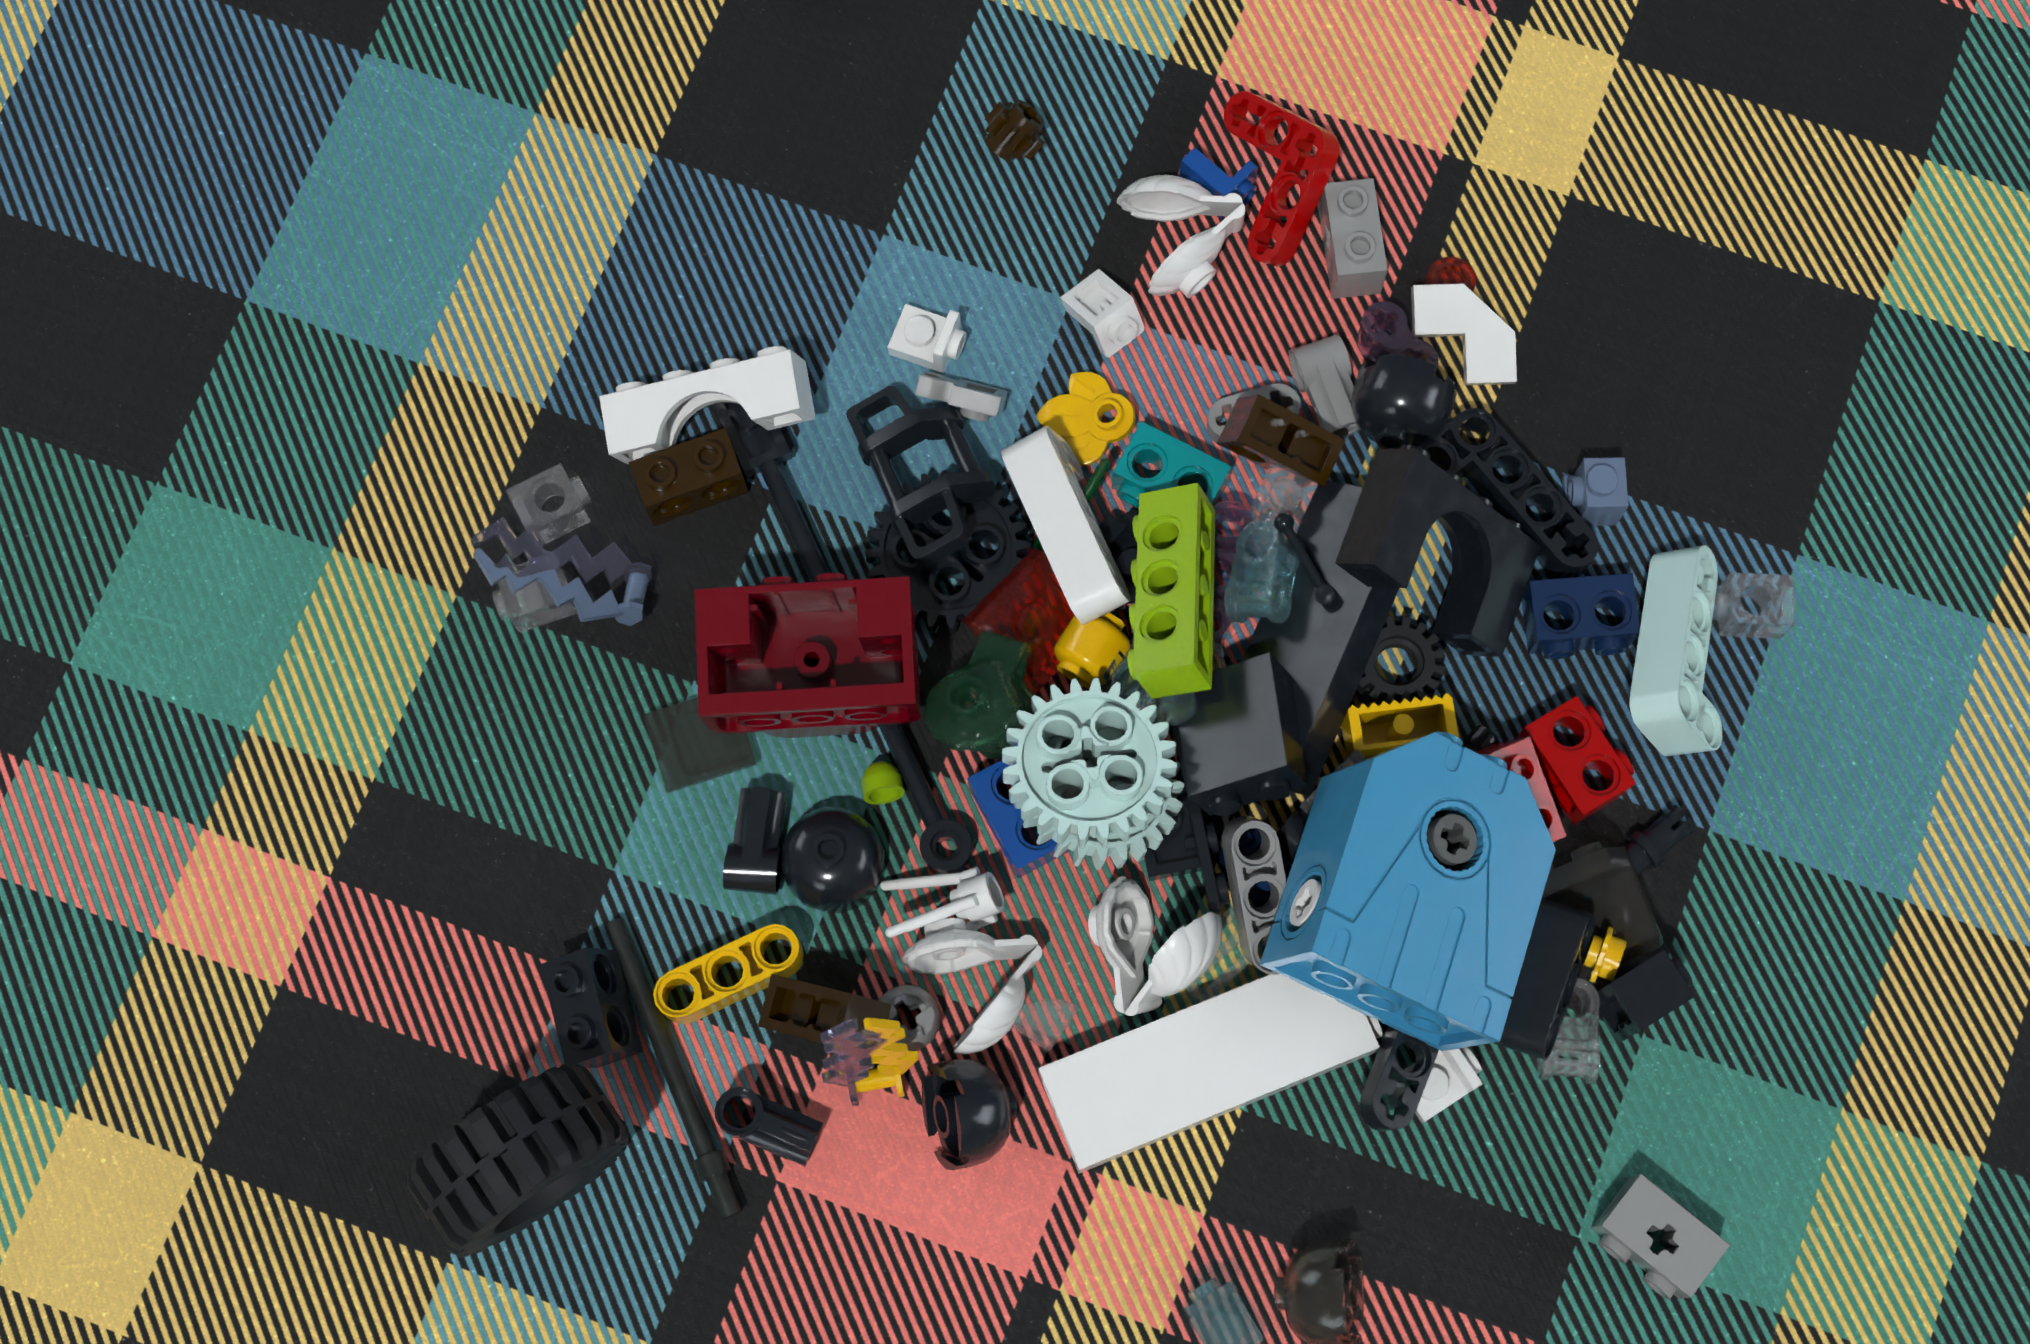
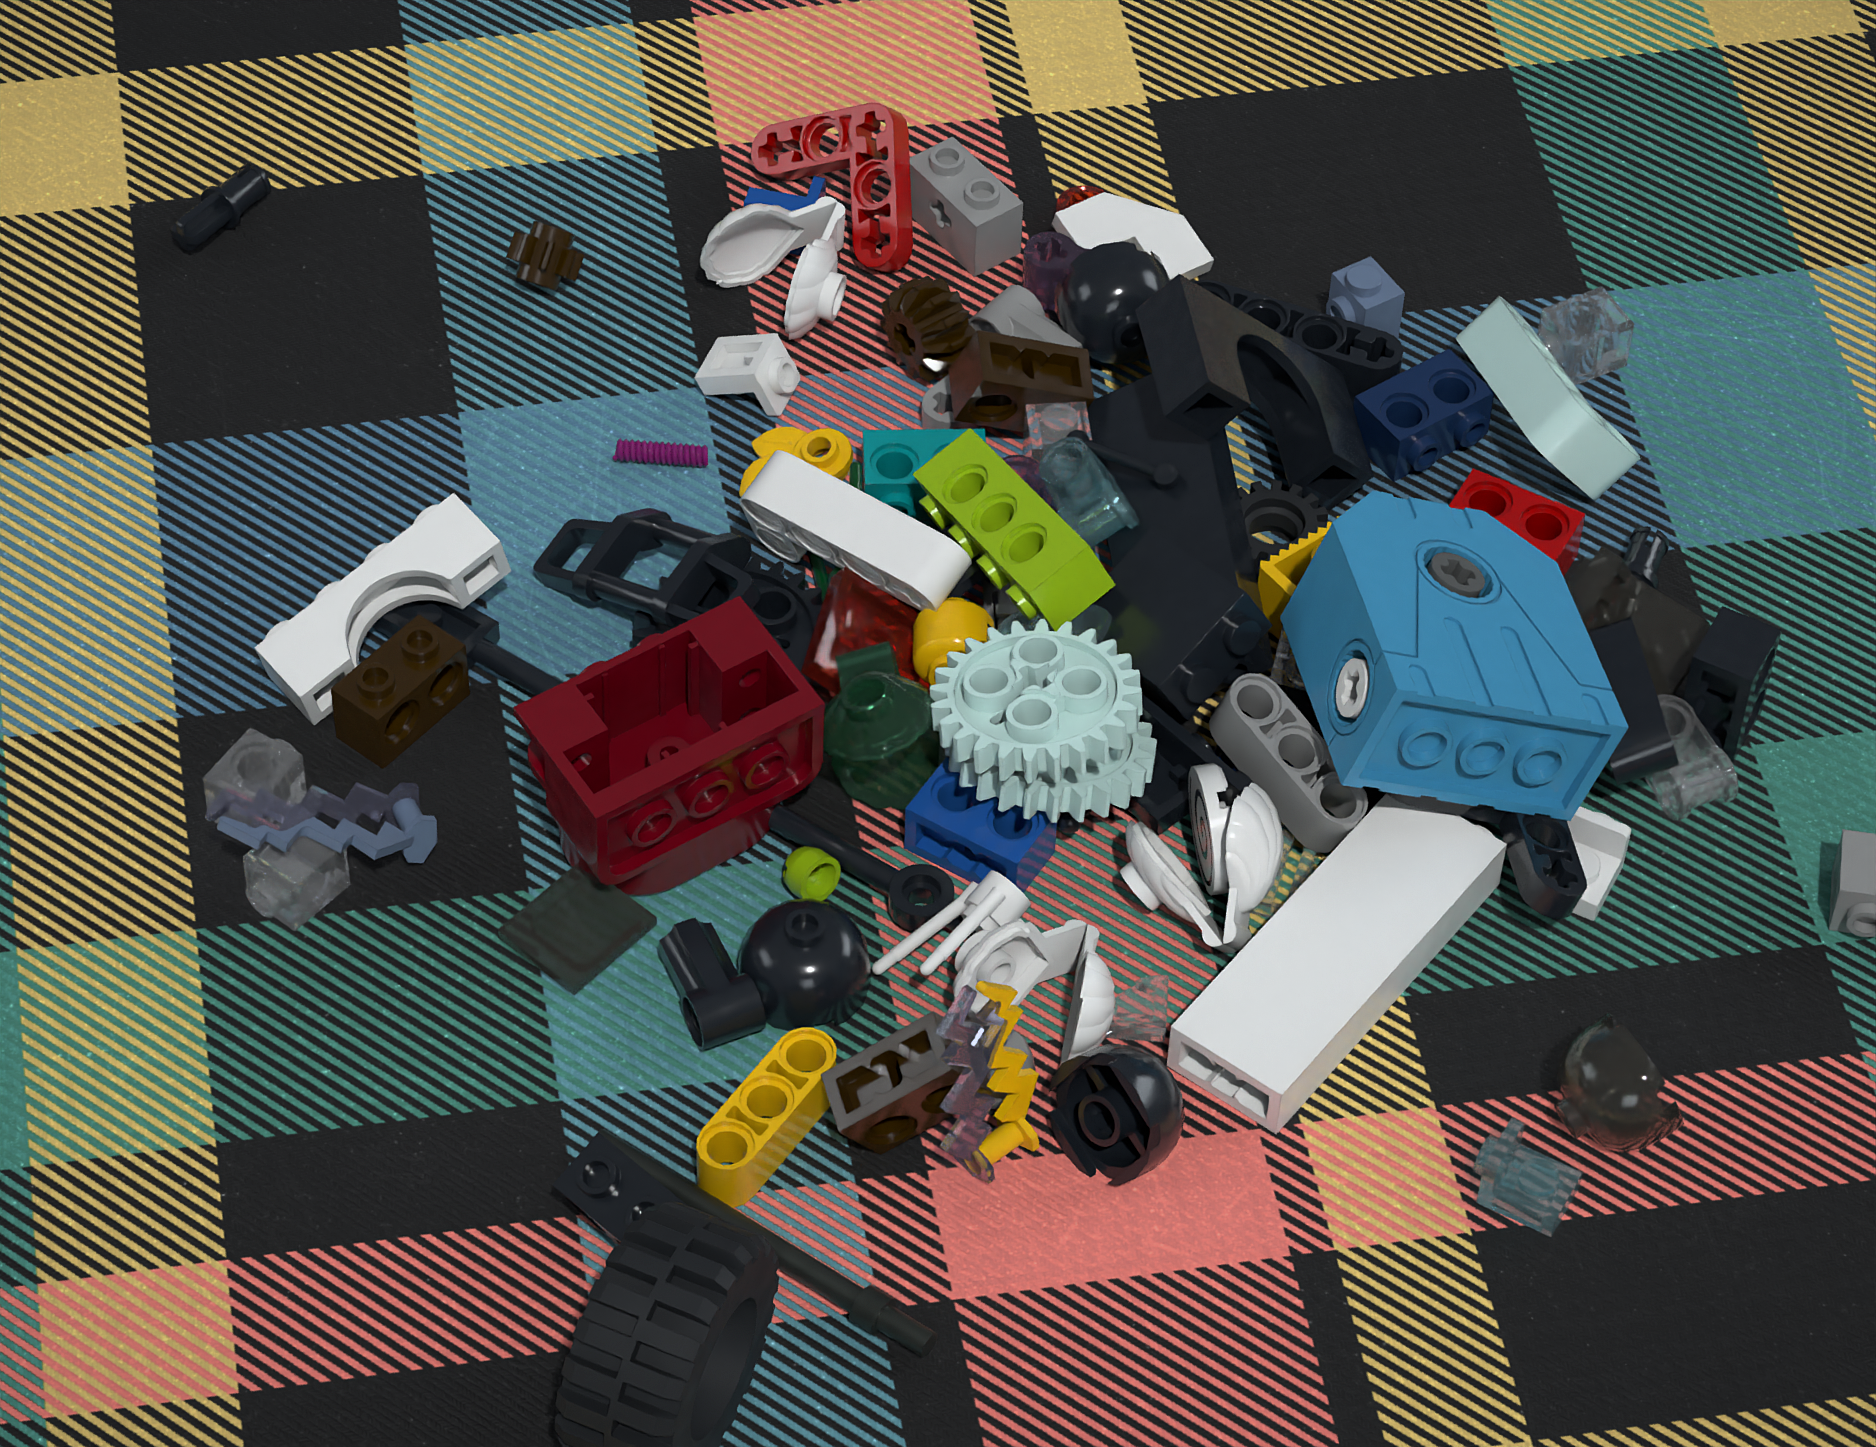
camera: 35 degrees left, 25 degrees down
(773, 1127) = (907, 1235): black piece -> none
(927, 338) = (576, 473): white bracket -> none
(974, 399) = (670, 493): light grey plate -> none
(1001, 350) = (661, 453): none -> magenta piece
(1177, 906) = (1209, 825): none -> white tile
(1251, 346) = (926, 326): none -> dark brown gear
(1605, 955) = (1667, 660): yellow plate -> none

